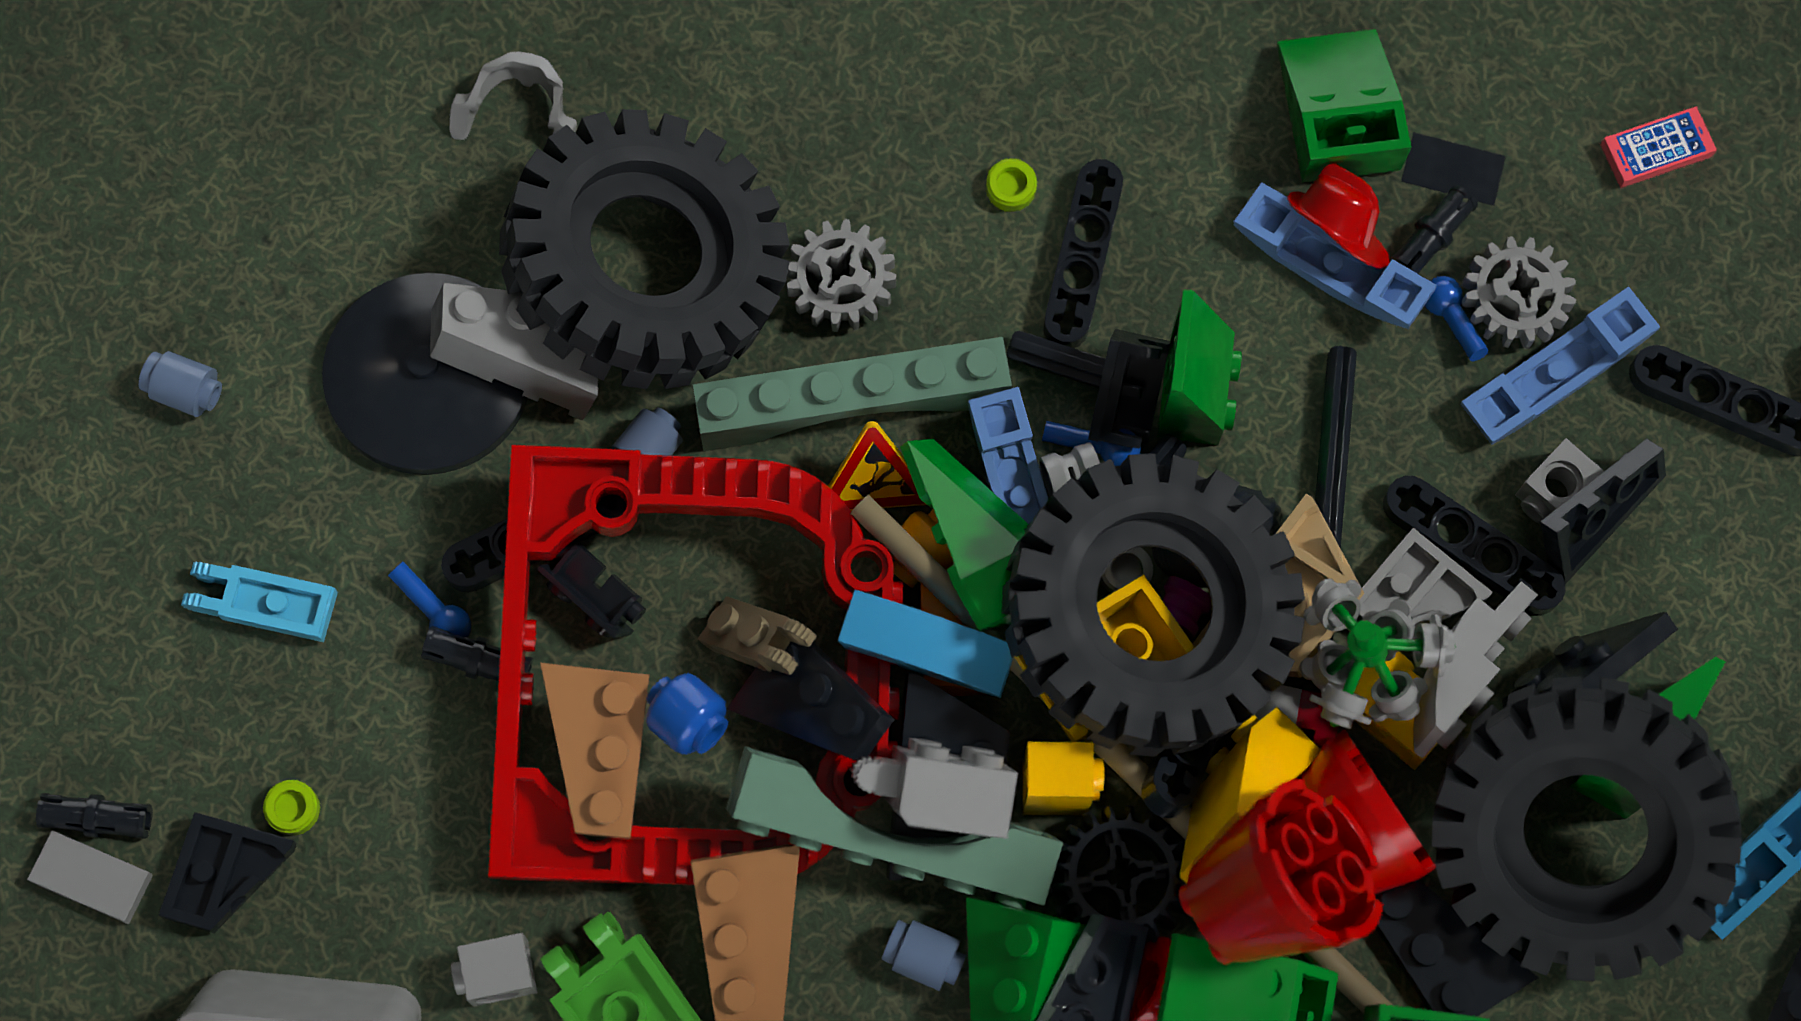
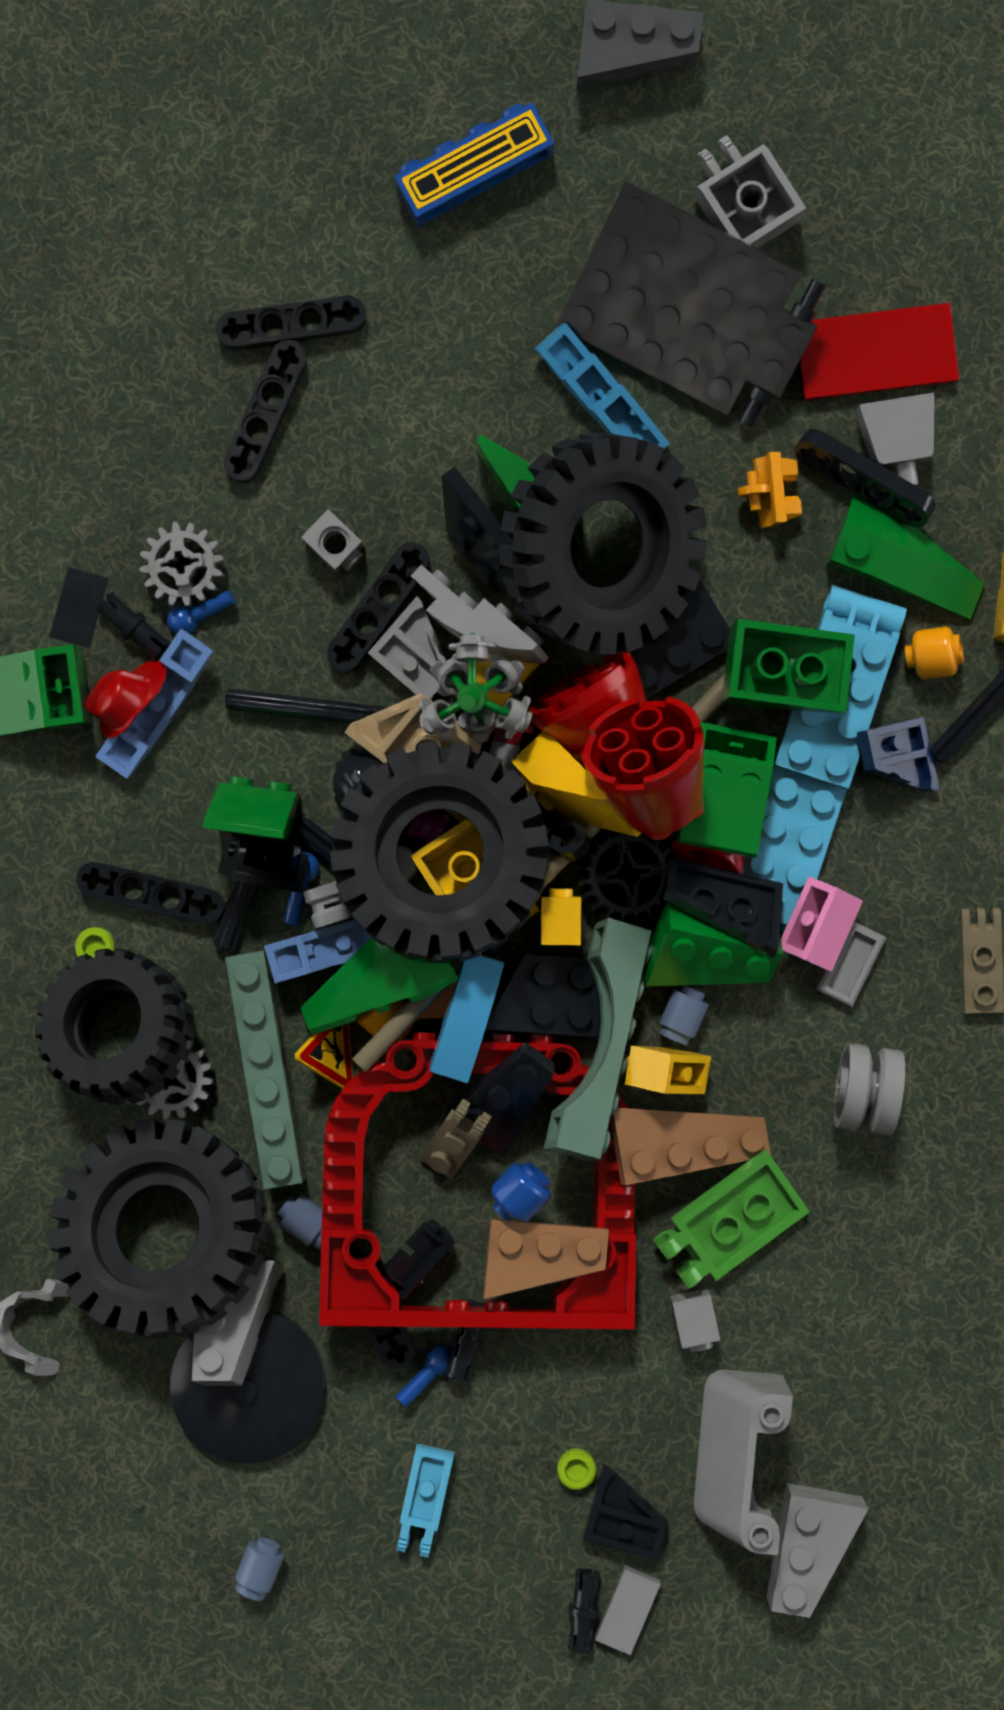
camera: 90 degrees left, 15 degrees up
(849, 925) = (667, 1070): none -> yellow brick
(938, 152) = (73, 1007): none -> black tyre
(942, 788) = (575, 1007): light grey hinge -> none
(1561, 367) = (241, 536): medium blue slope -> none
(1597, 510) = (354, 514): black wing -> none
(1658, 147) = (61, 449): tile -> none

